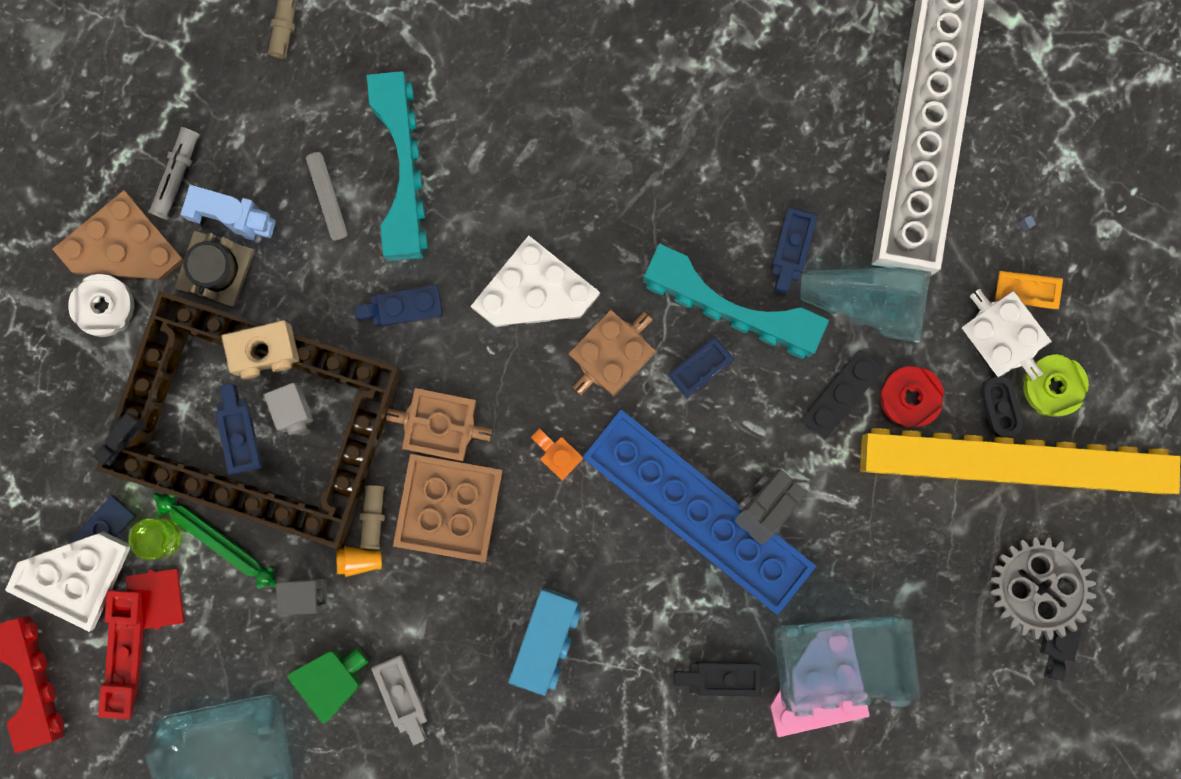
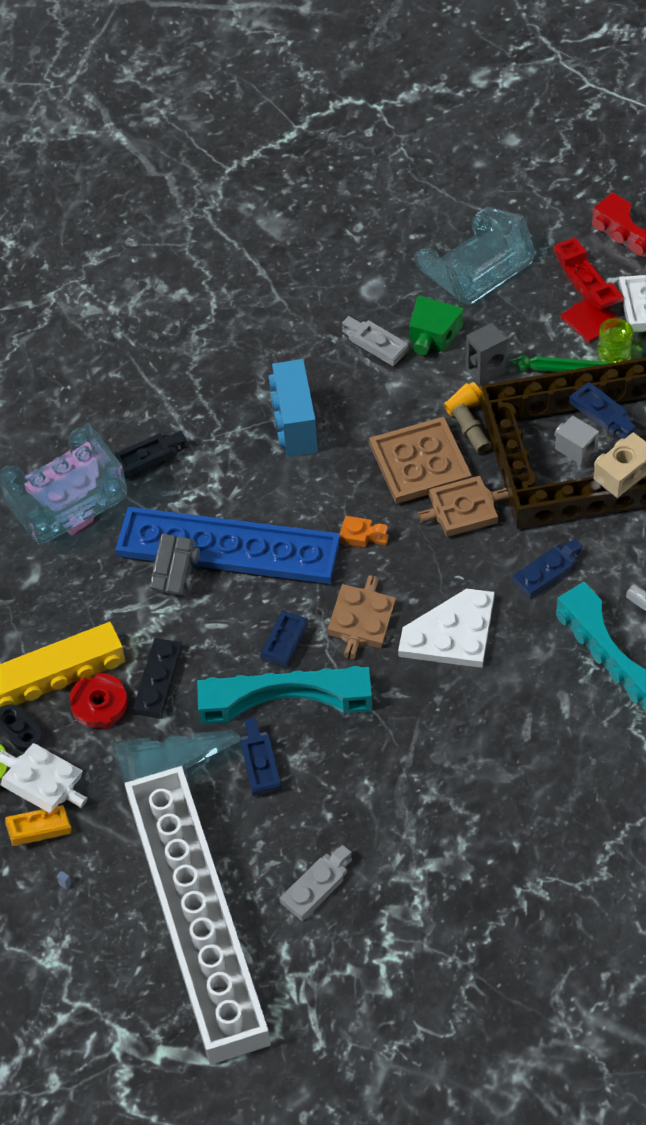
camera: 160 degrees right, 30 degrees down
(804, 98) = (316, 883): none -> light grey hinge

